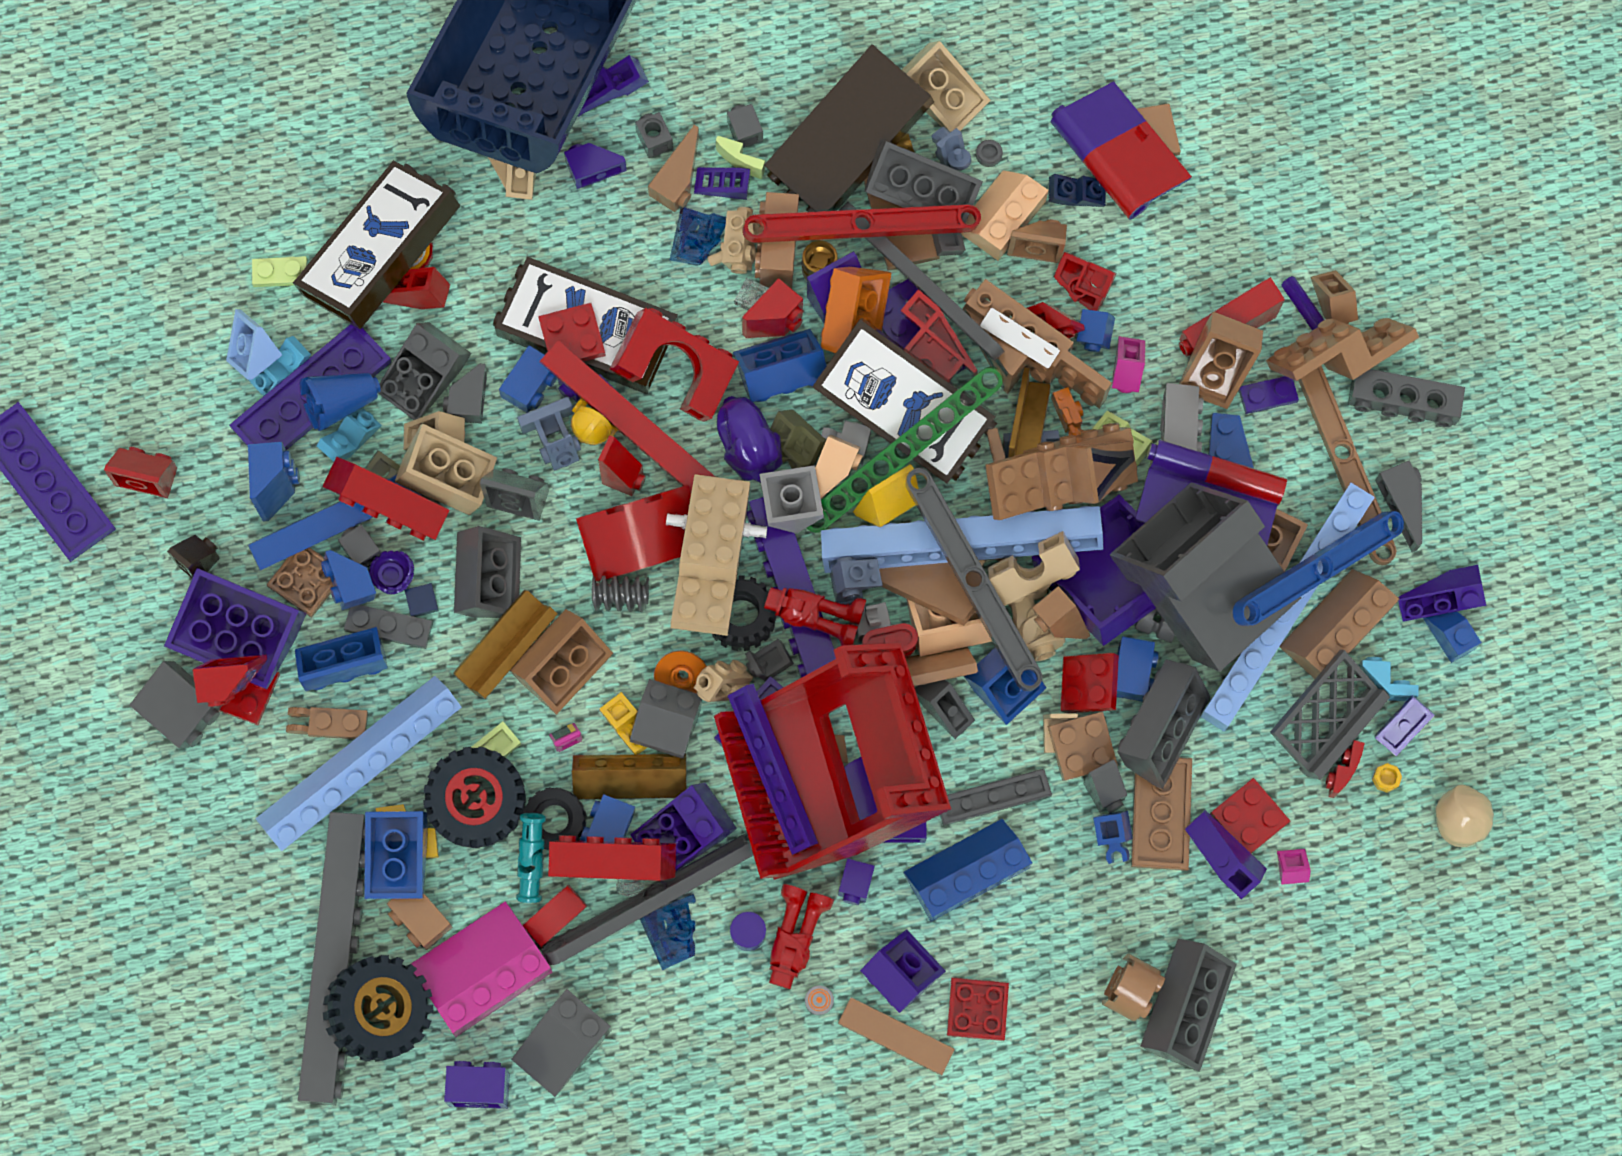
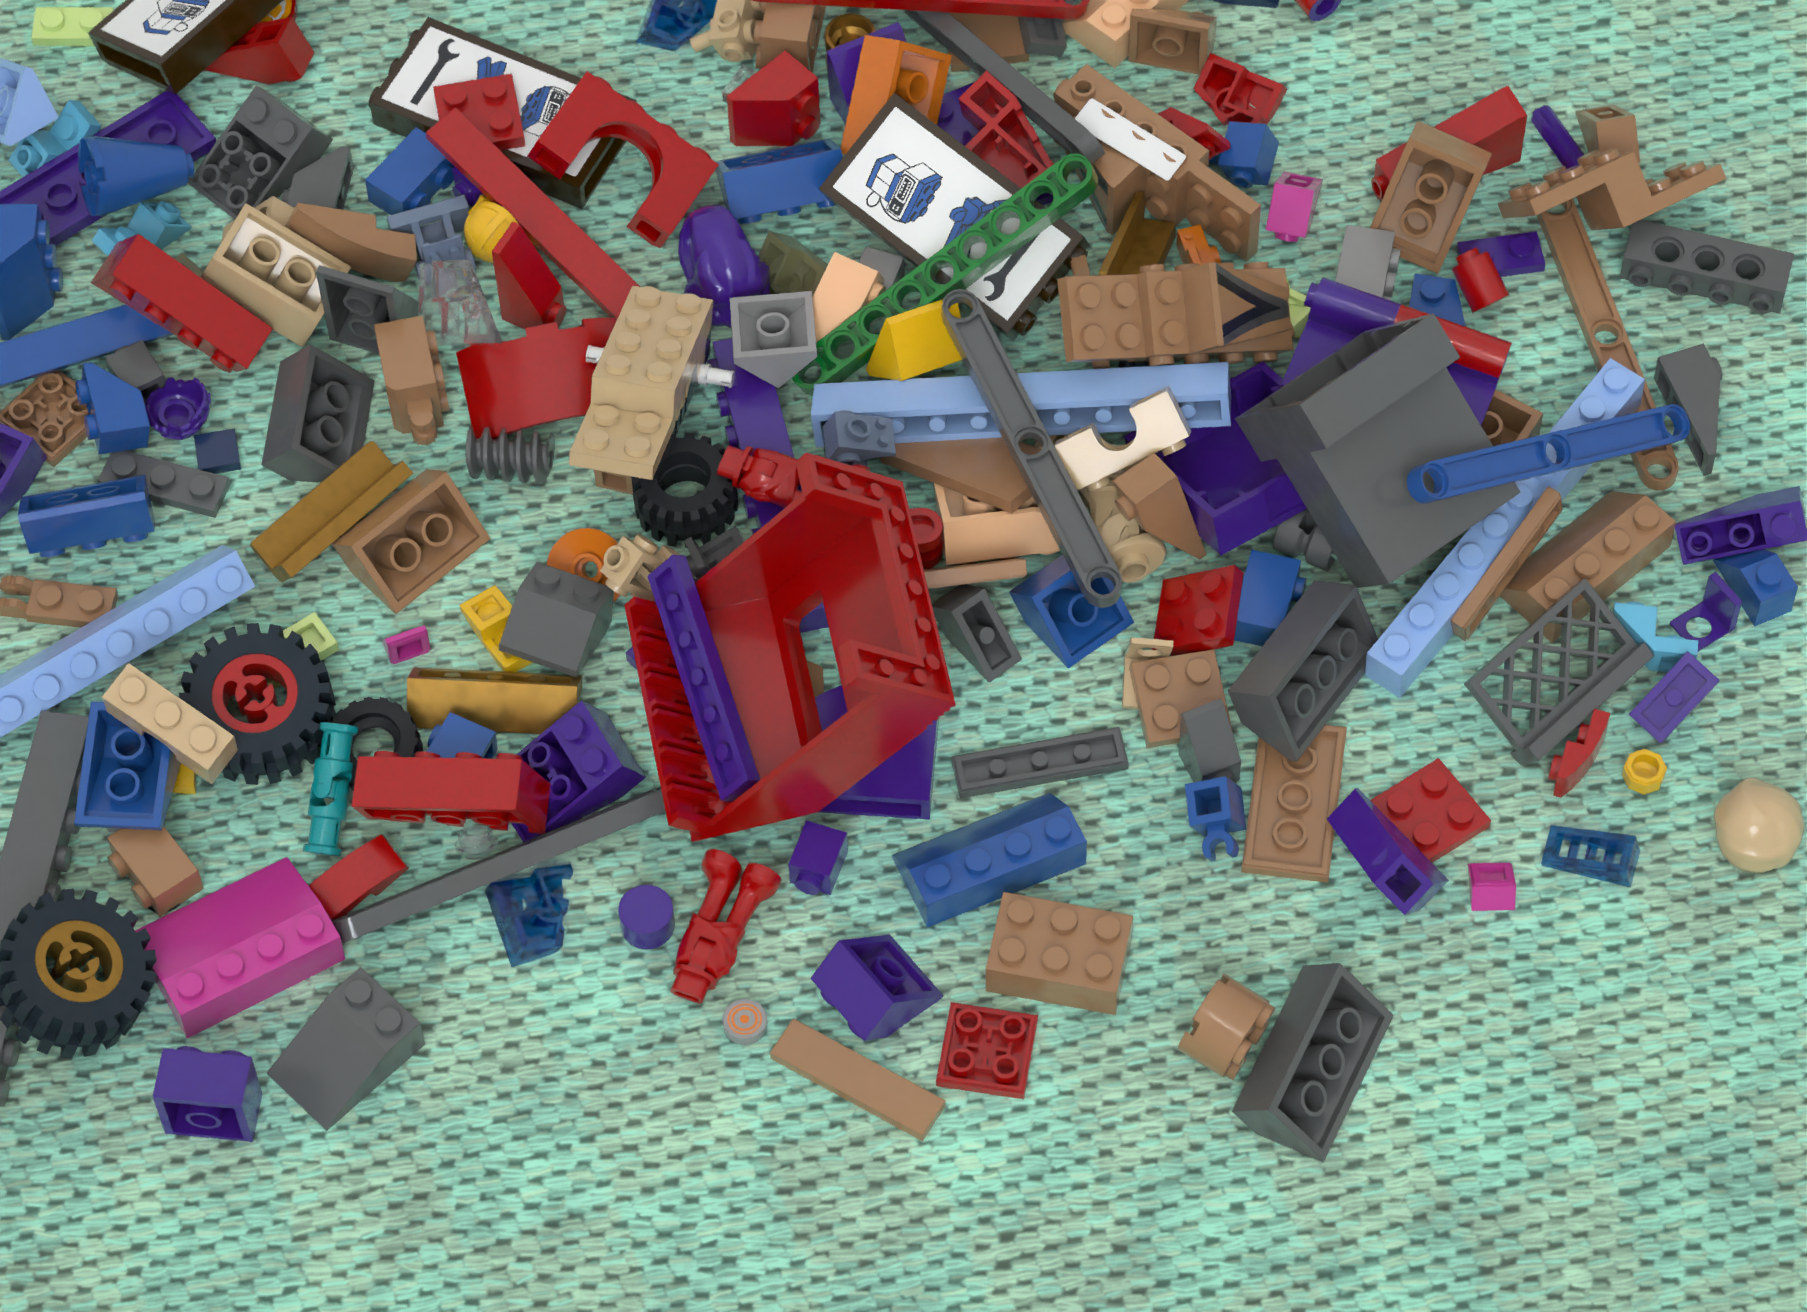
camera: 10 degrees right, 15 degrees down
(421, 830) = (183, 729): none -> tan arch
(498, 438) = (356, 240): none -> medium nougat slope
(549, 546) = (412, 377): none -> medium nougat hinge
(572, 491) = (455, 304): none -> clear slope
(1020, 940) = (1059, 953): none -> medium nougat brick
(1257, 418) = (1479, 279): none -> red brick
(1292, 636) = (1507, 564): none -> medium nougat tile
(1354, 850) = (1607, 870): none -> clear blue slope
(1428, 653) = (1718, 607): none -> dark purple bracket

